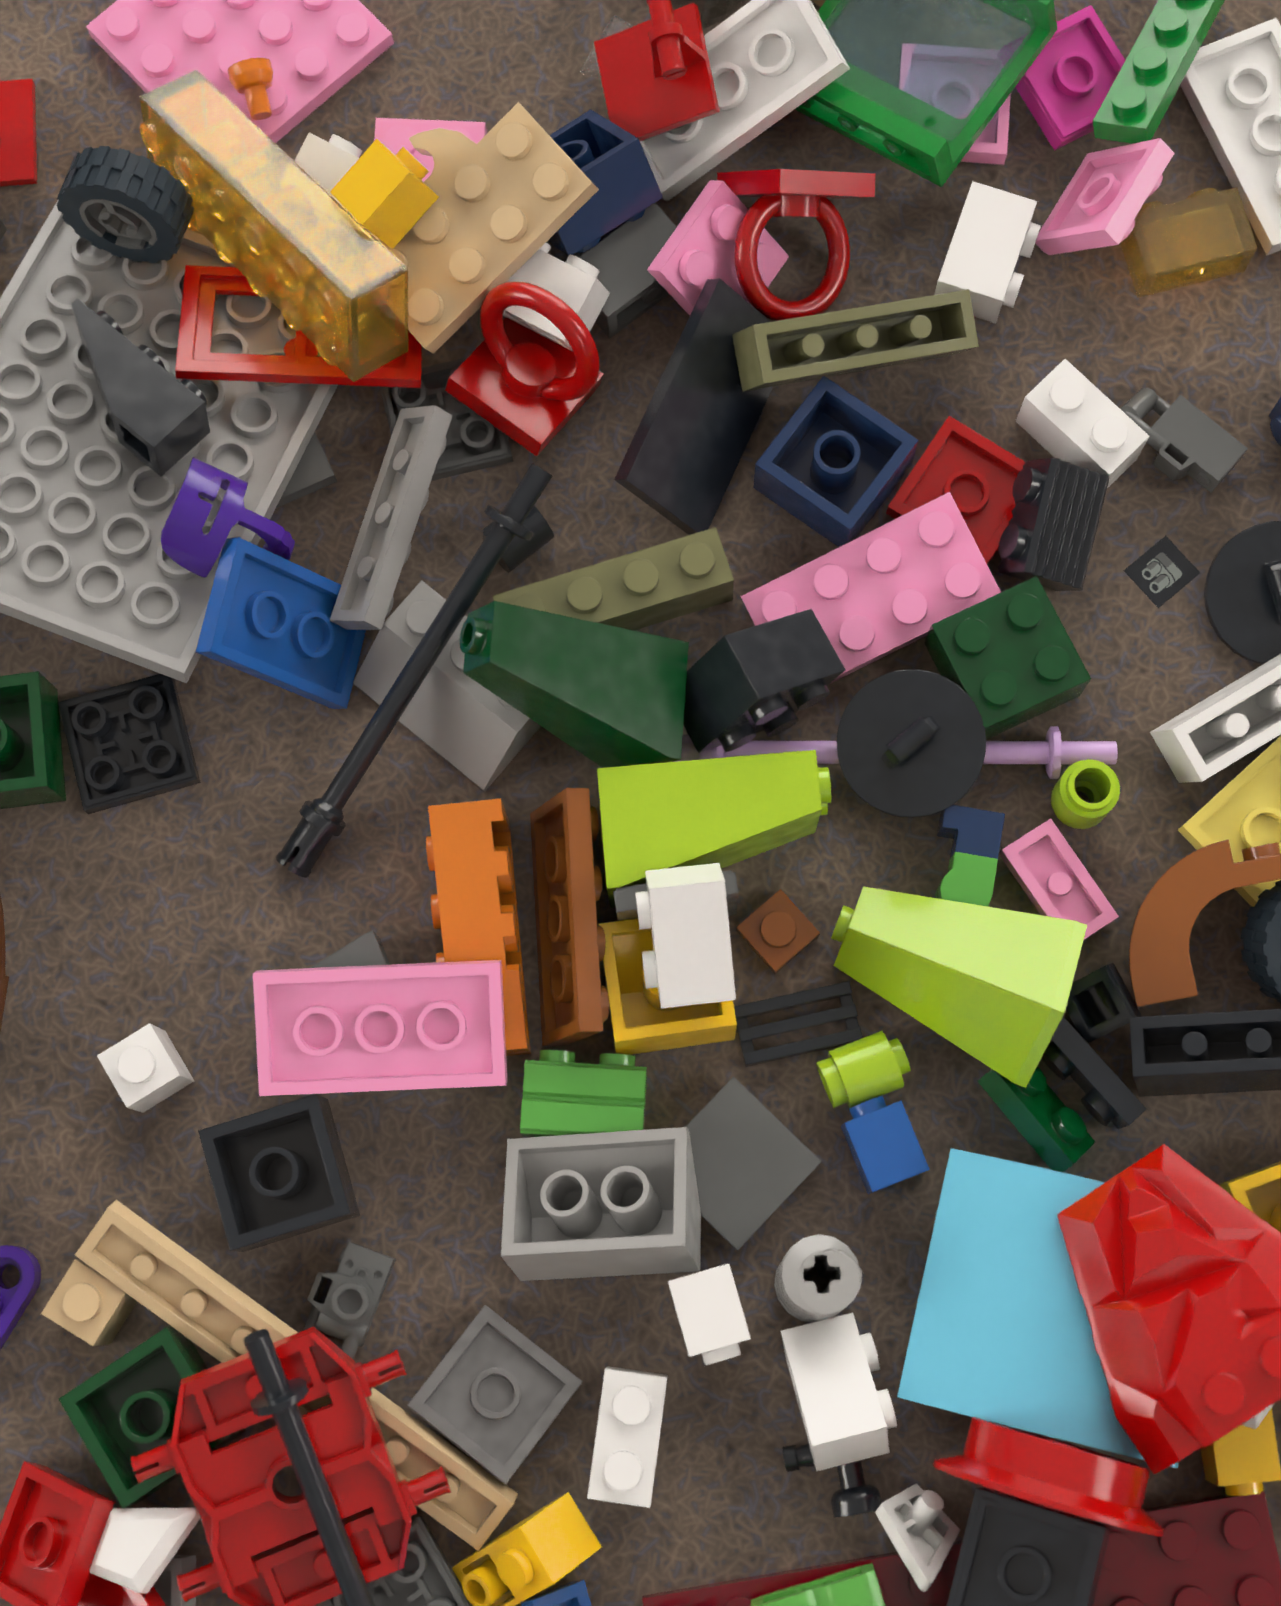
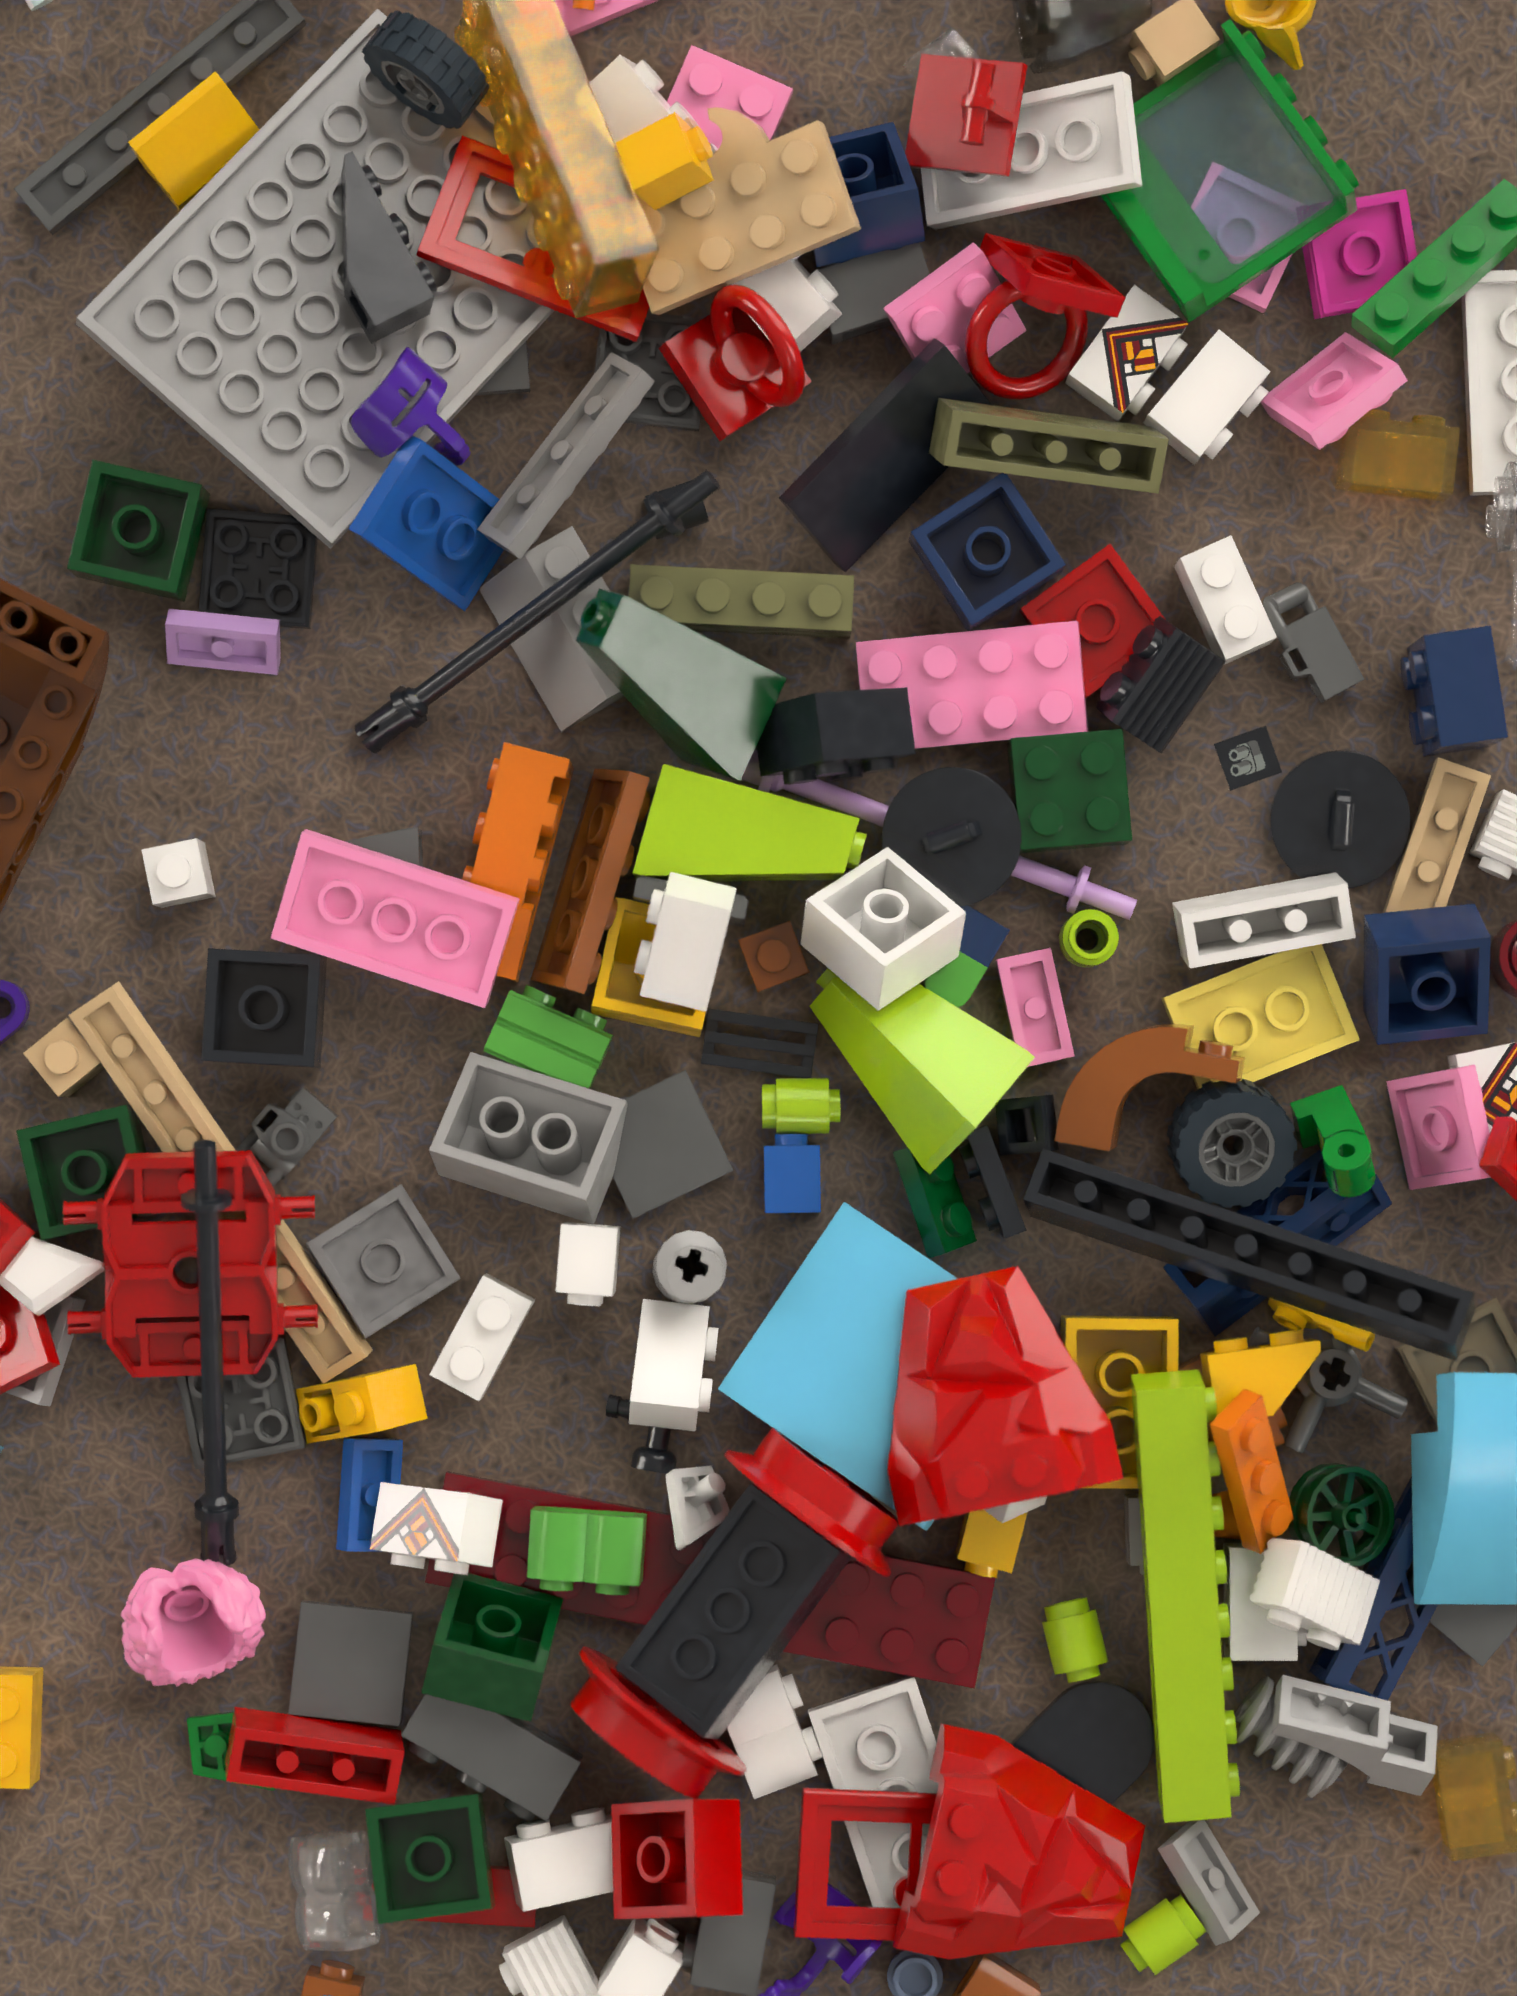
camera: 10 degrees right, 10 degrees up
(115, 822) = (223, 641): none -> lavender plate
(880, 853) = (882, 928): none -> white brick
(893, 240) = (1127, 354): none -> brick

